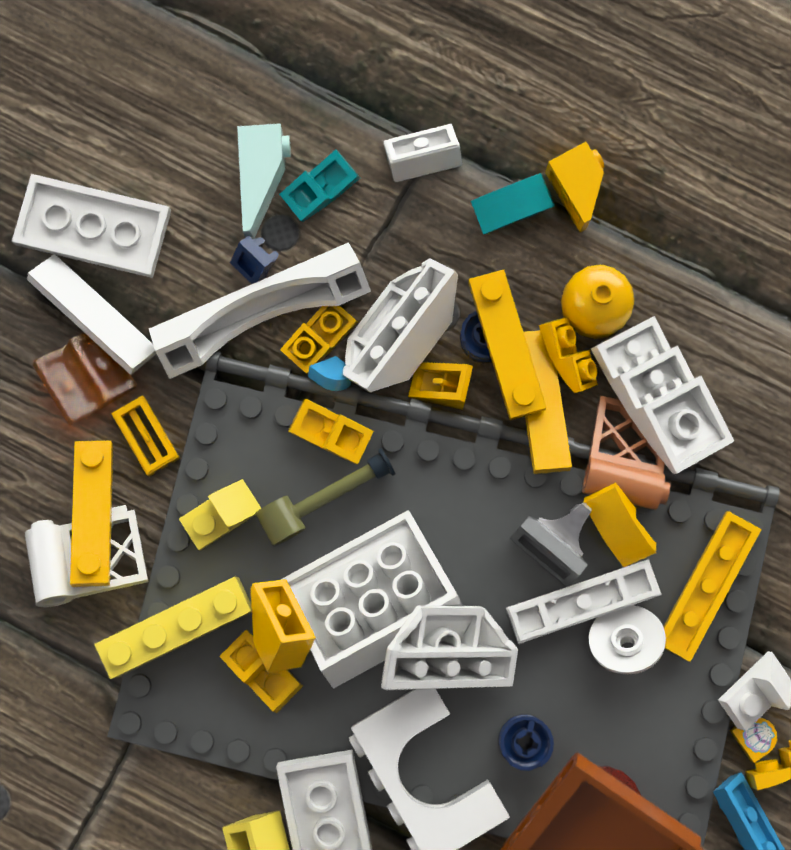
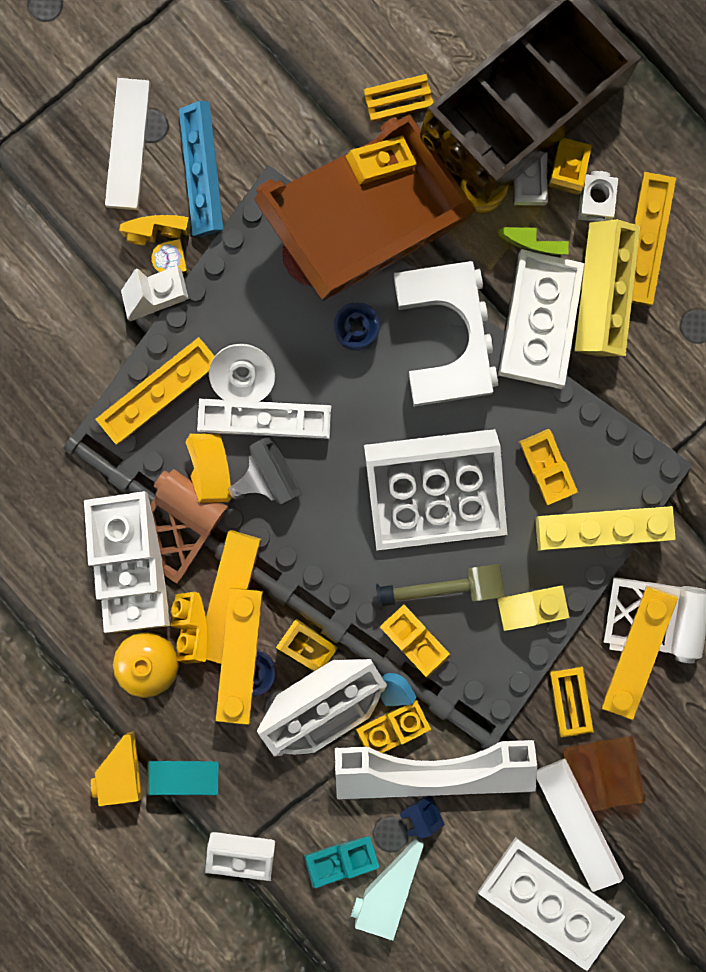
camera: 160 degrees left, 5 degrees up
(279, 626) = (519, 495): yellow slope -> none
(449, 651) = (390, 420): white wedge -> none

